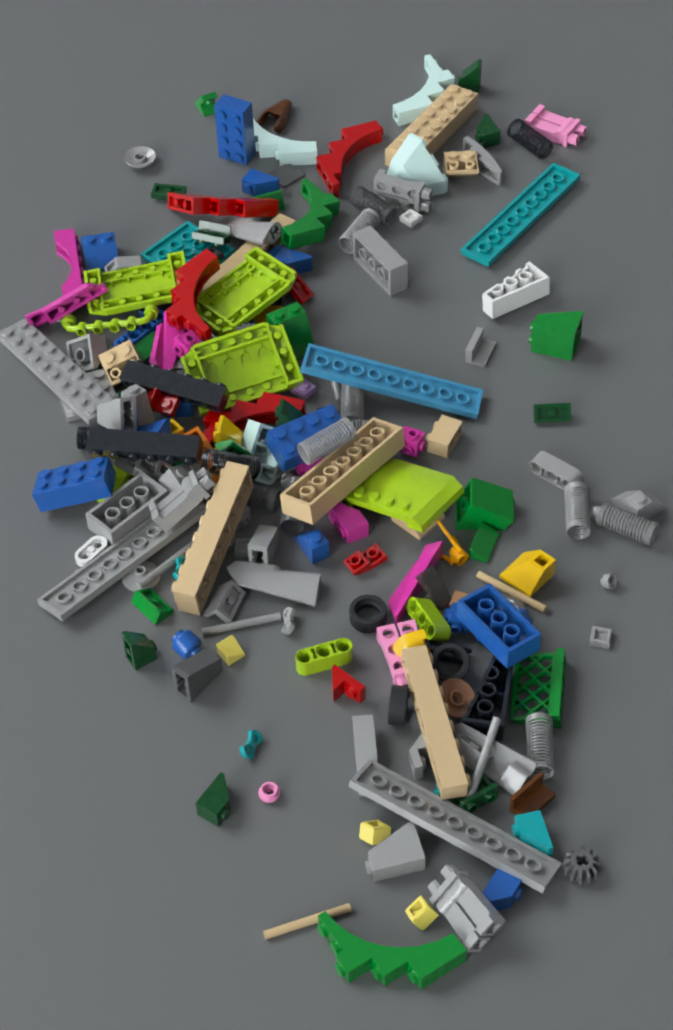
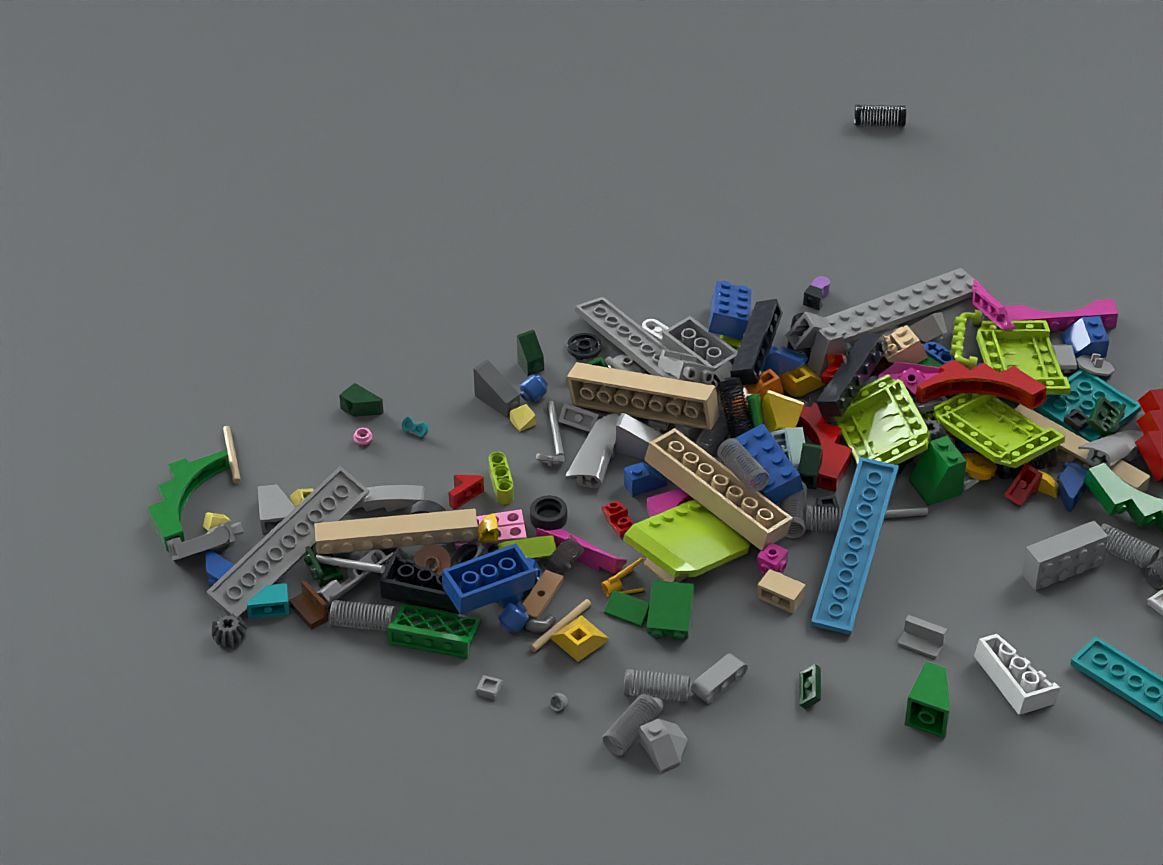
camera: 95 degrees right, 5 degrees down
(32, 432) = (816, 291): none -> black leg
(111, 613) = (583, 347): none -> black wheel
(134, 248) = (1095, 365): none -> light grey piece

